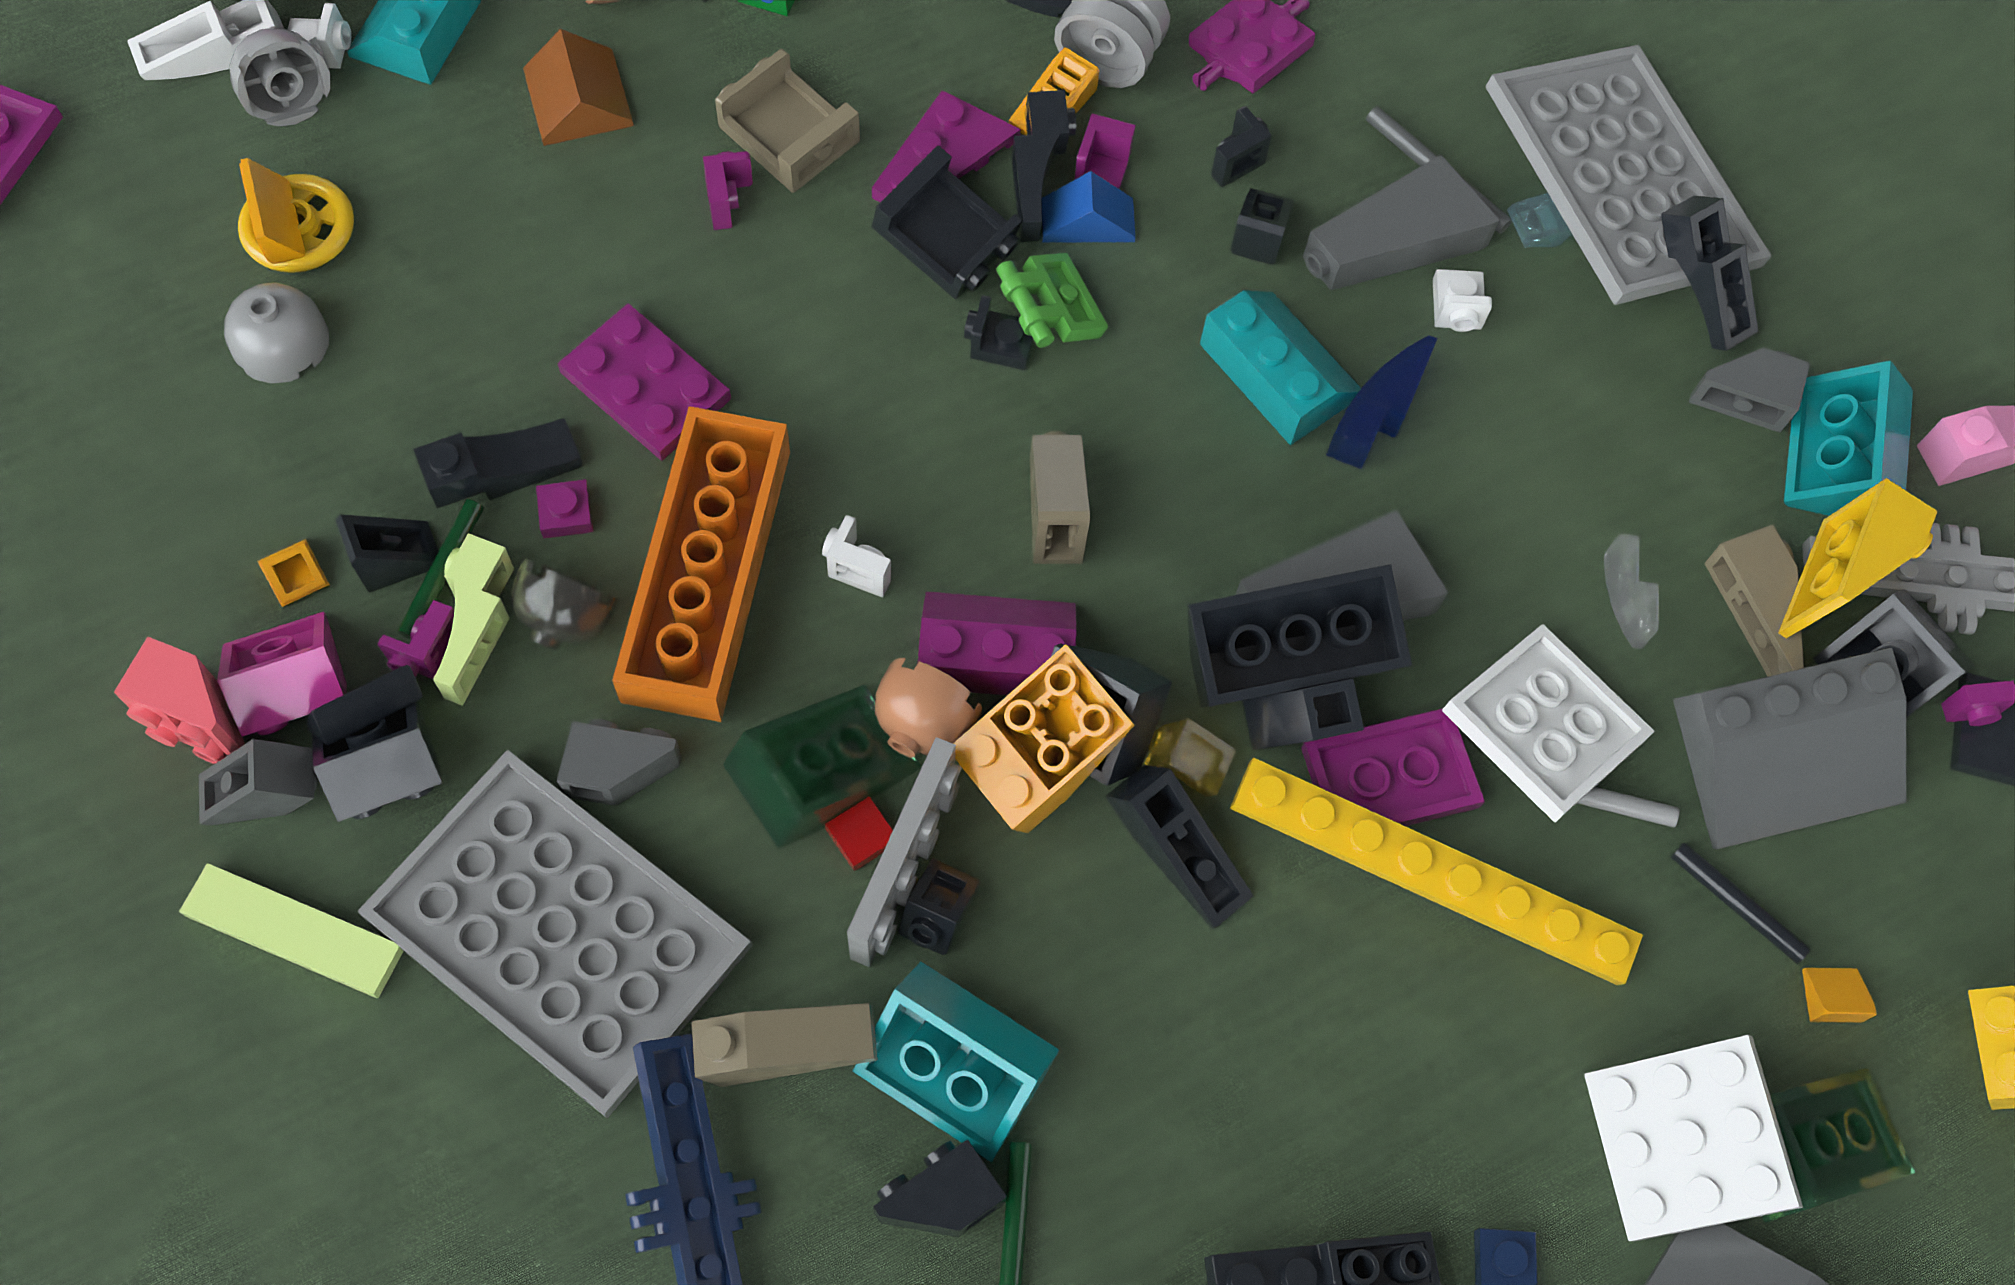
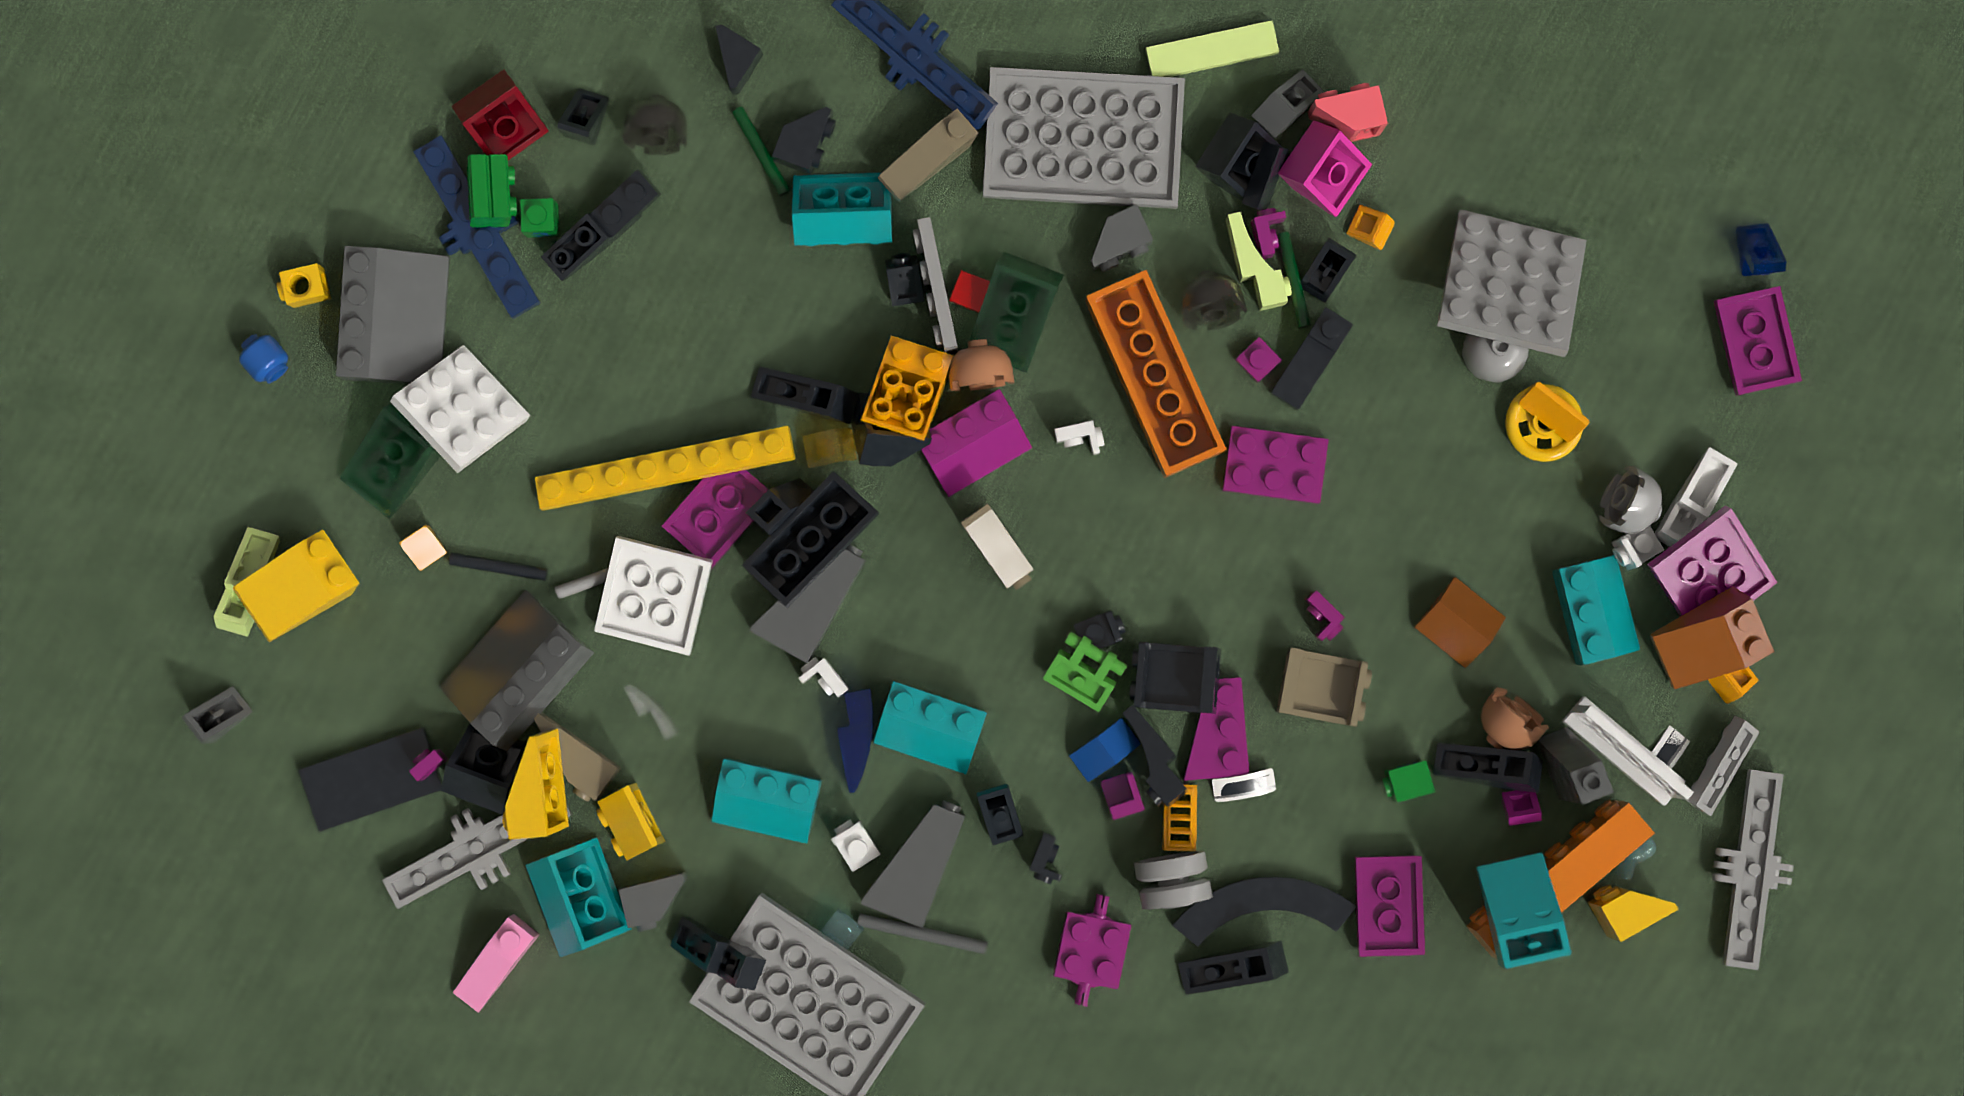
camera: 155 degrees right, 20 degrees up
(185, 377) = (1512, 283): none -> light grey plate
(957, 86) = (1244, 786): none -> sticker
(1375, 489) = (830, 680): none -> white bracket
(1536, 411) = (766, 800): none -> teal slope
(1734, 477) = (629, 821): none -> yellow slope

